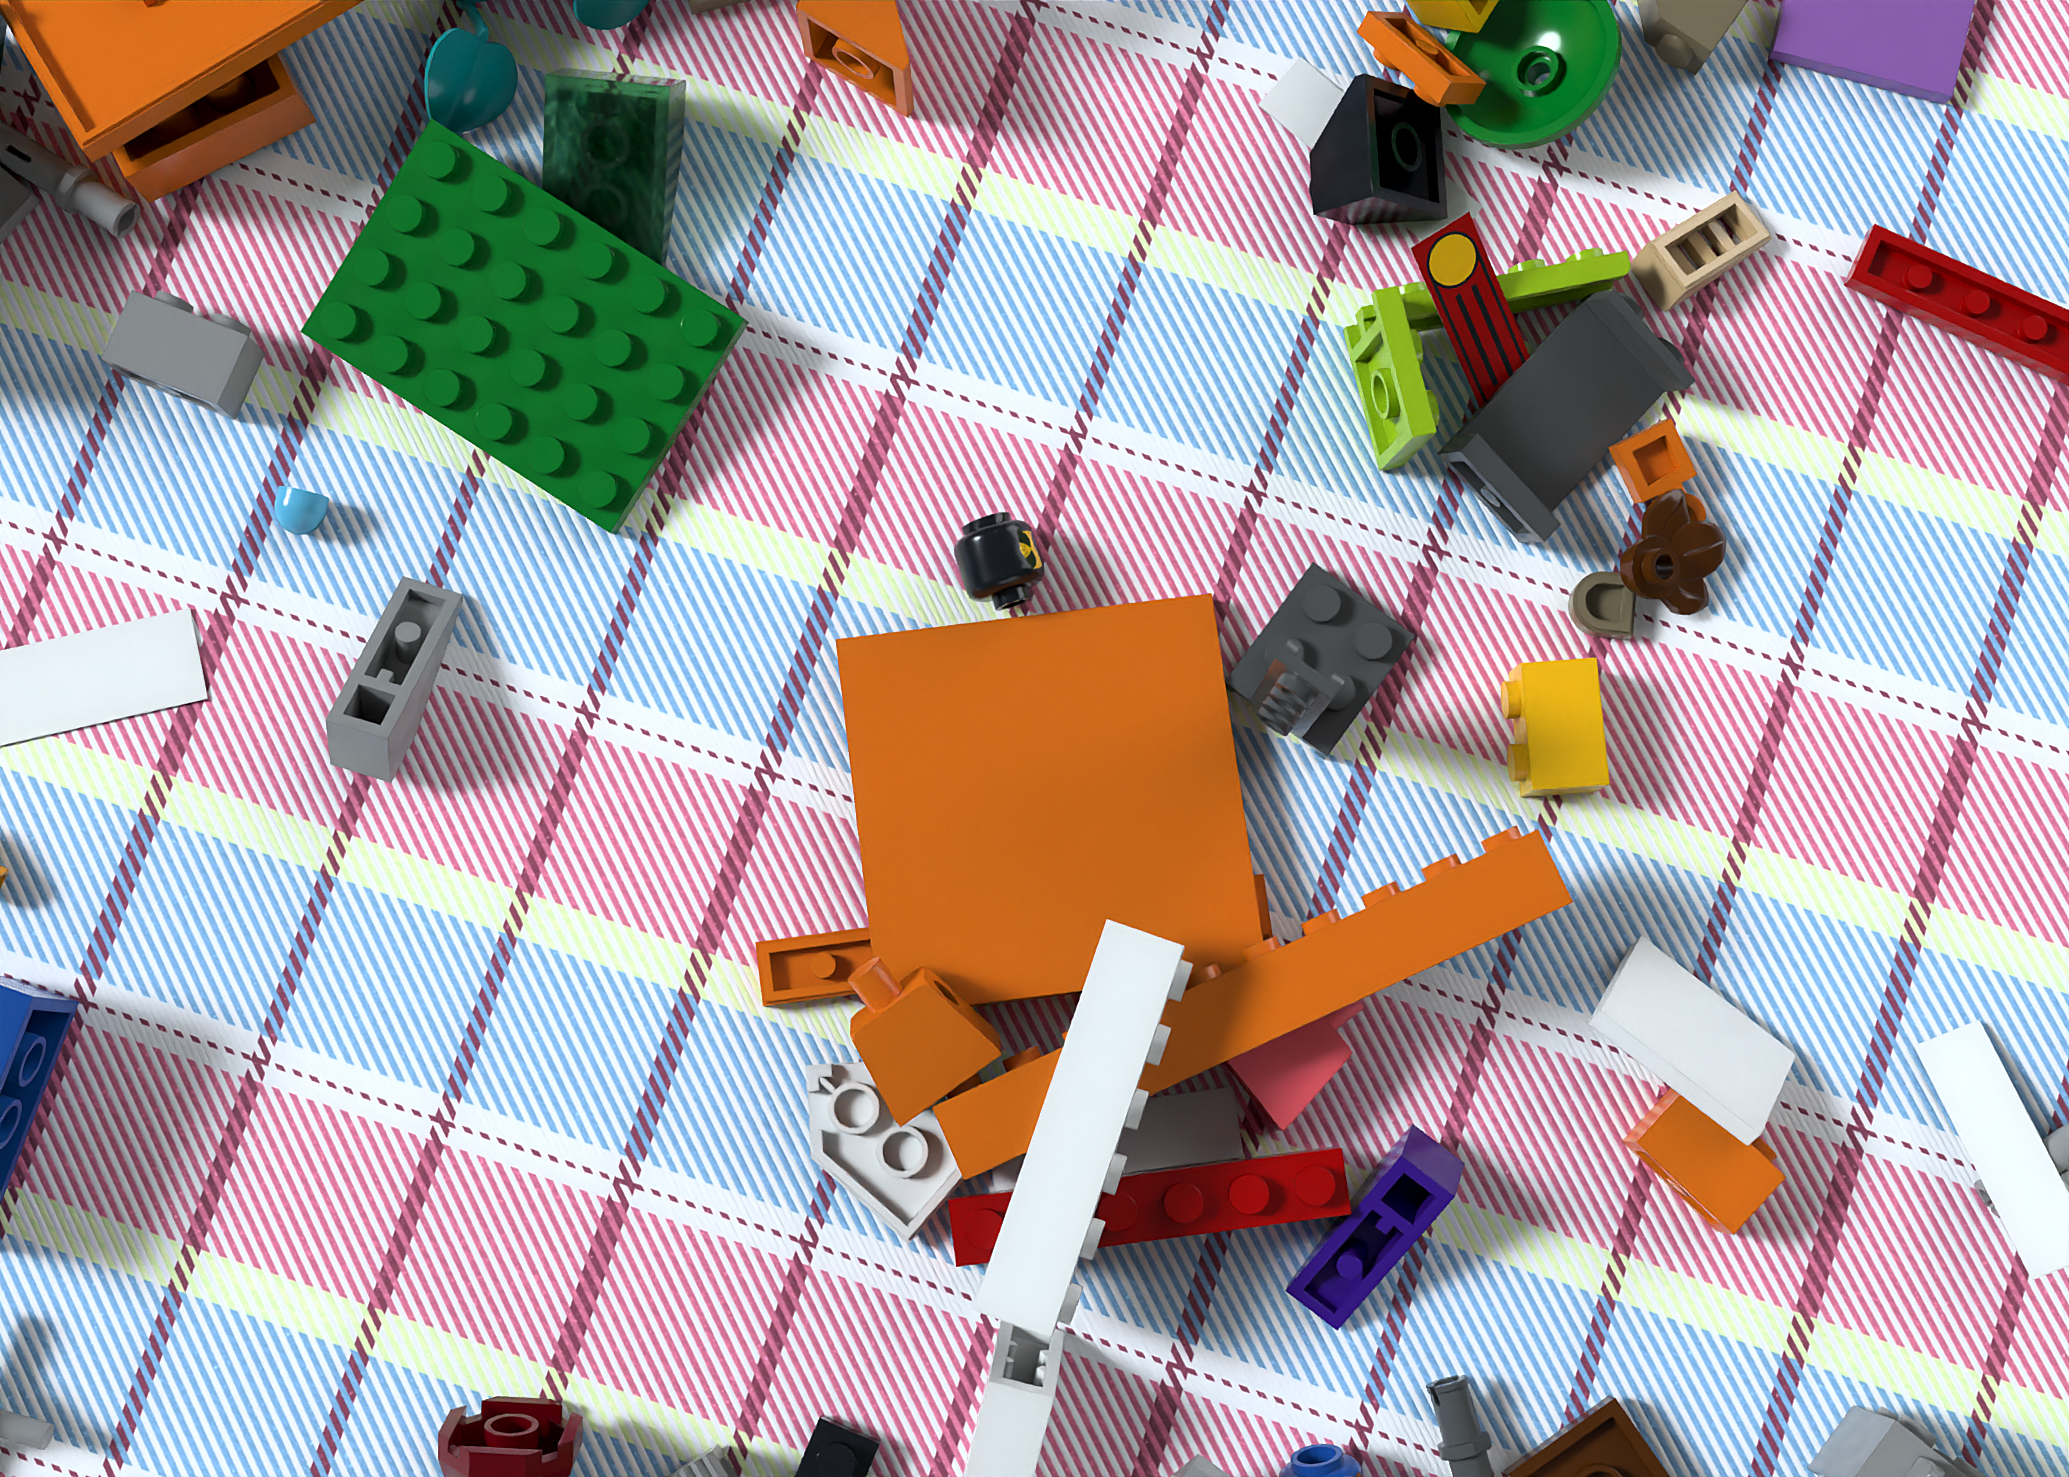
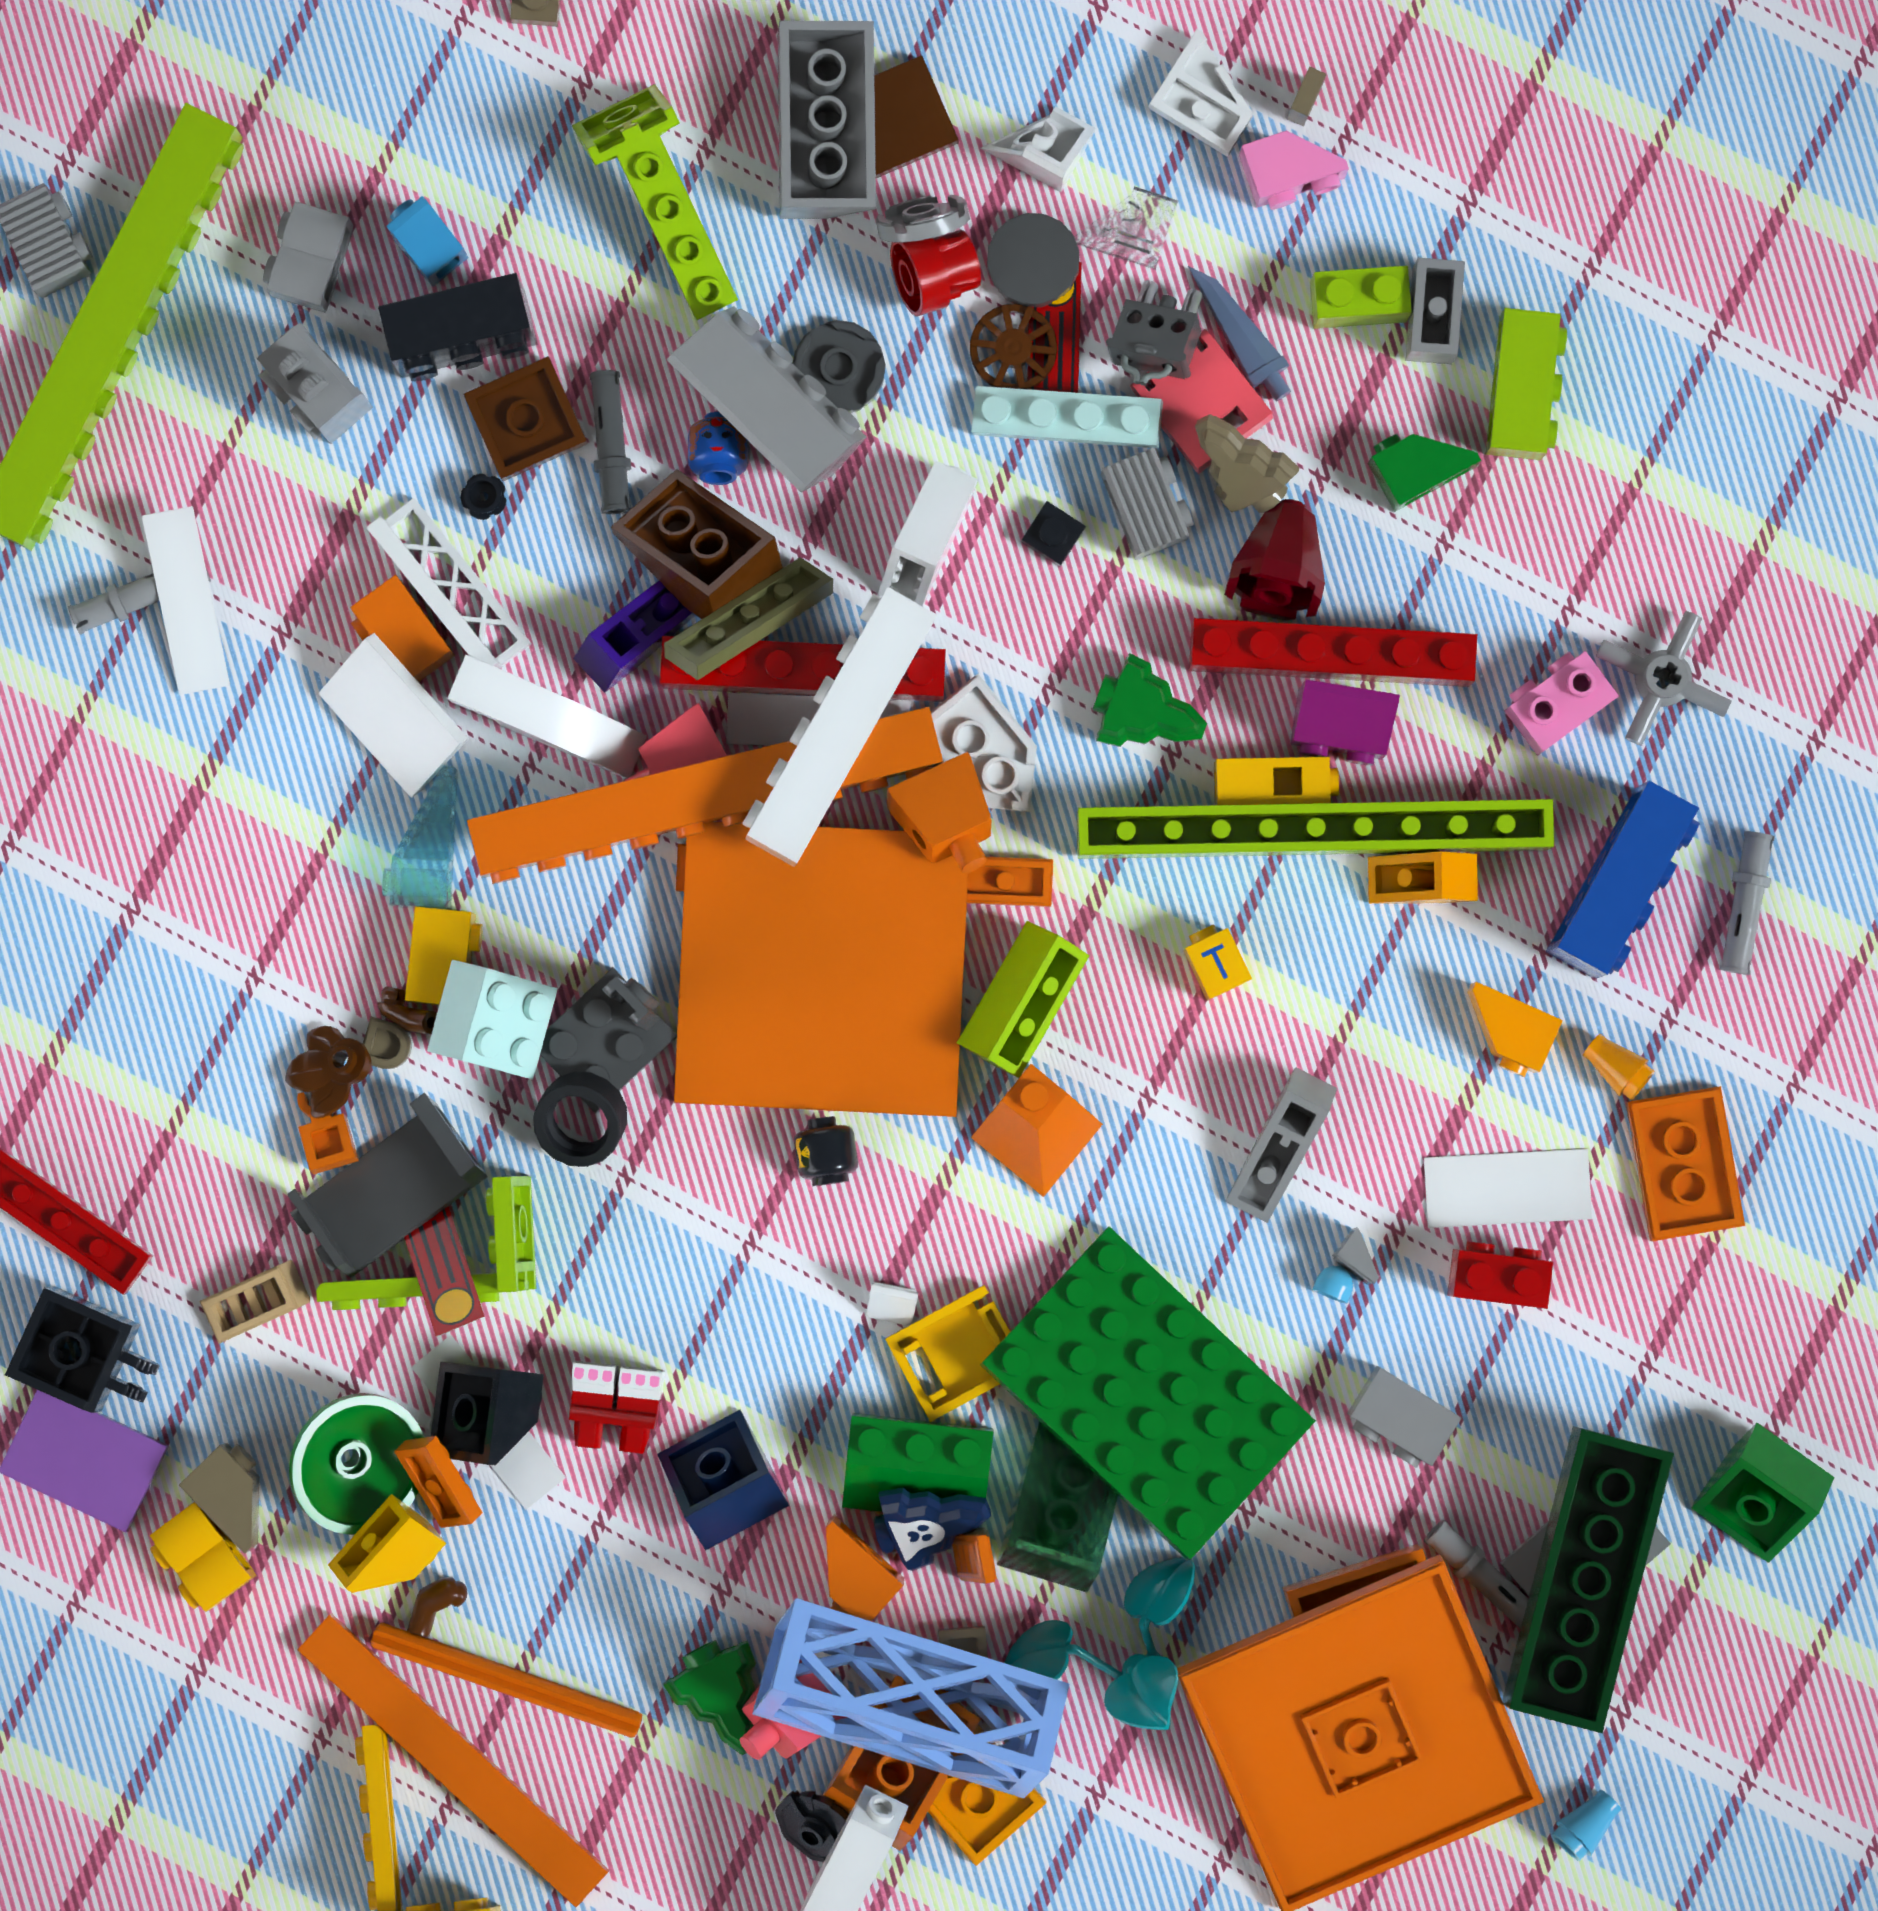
camera: 165 degrees left, 5 degrees up
(76, 552) = (1500, 1278): none -> red brick
(93, 1349) = (1560, 702): none -> bright pink brick
(100, 883) = (1513, 1029): none -> light orange slope
(253, 1068) = (1423, 878): none -> light orange slope
(278, 551) = (1355, 1257): none -> light grey slope
(388, 1267) = (1343, 721): none -> magenta slope
(402, 1109) = (1315, 829): none -> lime brick
(417, 1362) = (1333, 652): none -> red brick
(475, 1163) = (1274, 781): none -> yellow brick
(518, 904) = (1216, 961): none -> yellow brick
(674, 1236) = (1142, 707): none -> green rock
(713, 82) = (974, 1557): none -> orange slope
(727, 643) = (1037, 1130): none -> orange slope
(770, 805) = (1023, 999): none -> lime brick
(783, 350) = (956, 1344): none -> yellow container
(784, 110) = (925, 1524): none -> dark blue rock
(808, 190) = (914, 1456): none -> green slope
(878, 390) = (892, 1303): none -> white slope
(1058, 126) = (722, 1480): none -> dark blue slope
(1237, 186) = (595, 1398): none -> red hips
(1238, 1259) = (748, 618): none -> olive plate
(1321, 1349) = (697, 544): none -> reddish brown slope
(1336, 508) = (567, 1149): none -> black tyre
(1476, 650) = (492, 1019): none -> light aqua brick
(1489, 1074) = (546, 717): none -> white slope
(1586, 643) = (408, 1018): none -> reddish brown arm
(1606, 858) = (425, 857): none -> clear light blue slope
(1648, 1369) = (471, 496): none -> black plate
(1670, 1215) = (430, 590): none -> white fence
(1918, 139) = (105, 1346): none -> black hinge

